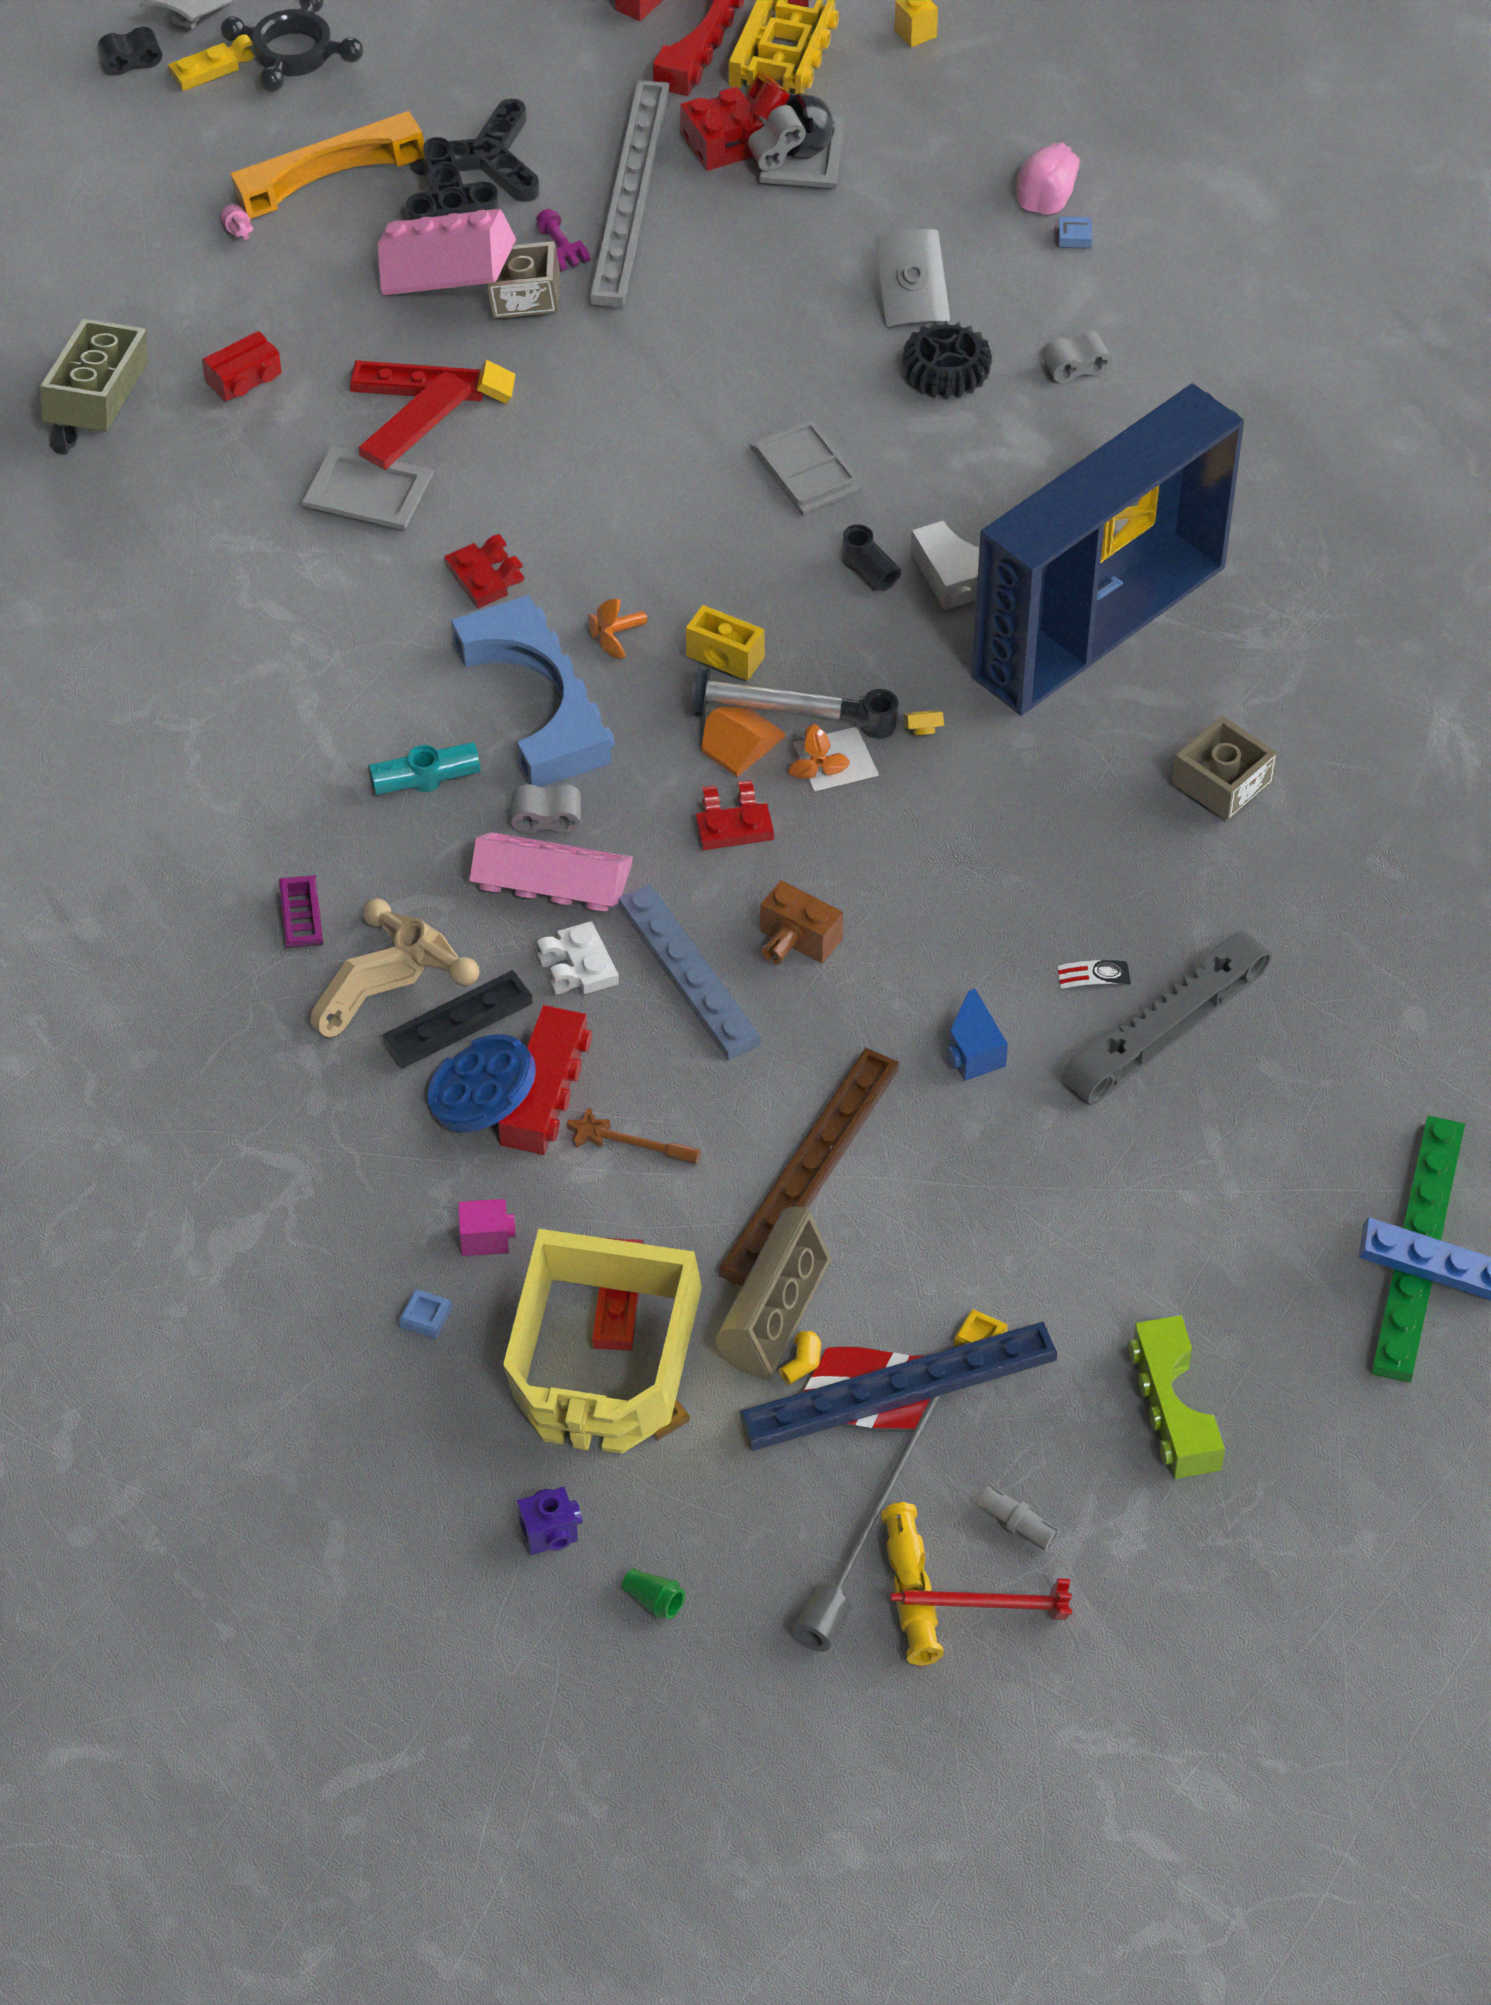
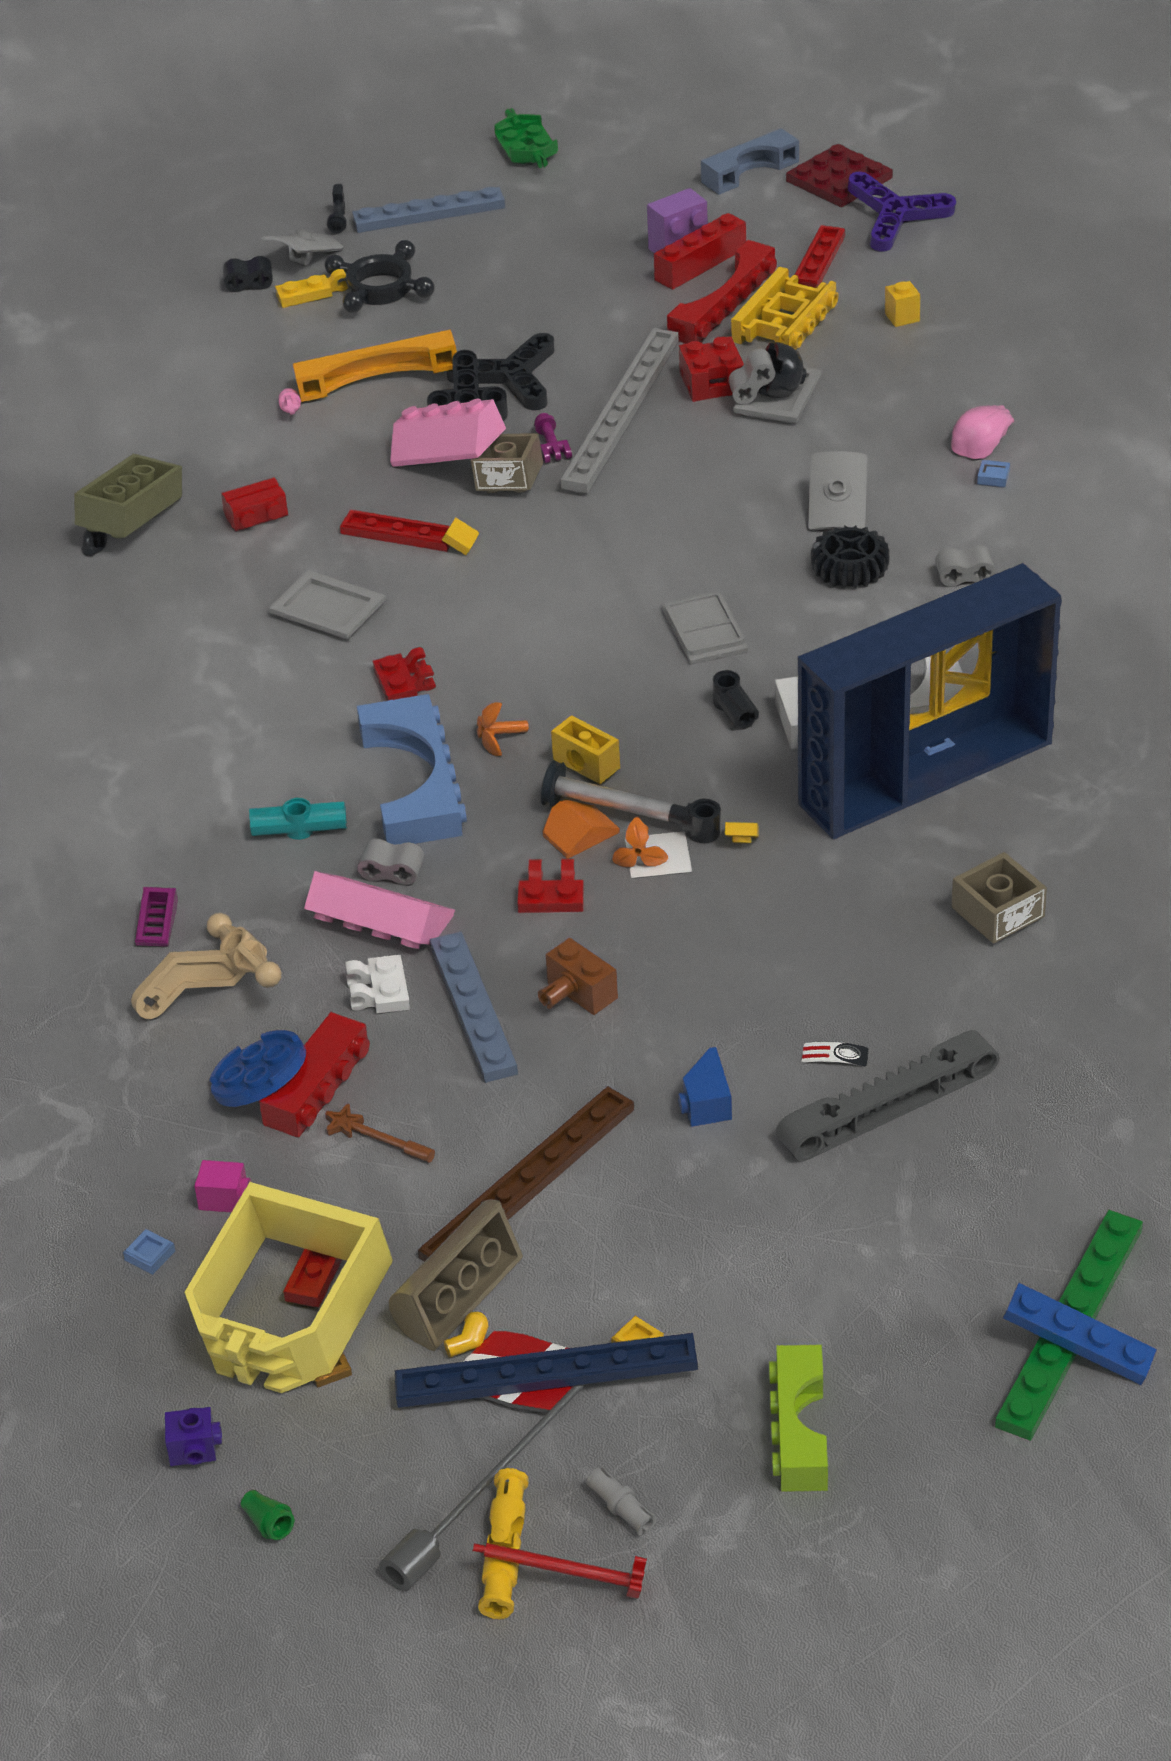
camera: 15 degrees right, 10 degrees down
(414, 420) = (381, 556): red tile -> none
(457, 1019) = (258, 1017): black plate -> none
(765, 95) = (752, 341): red plate -> none

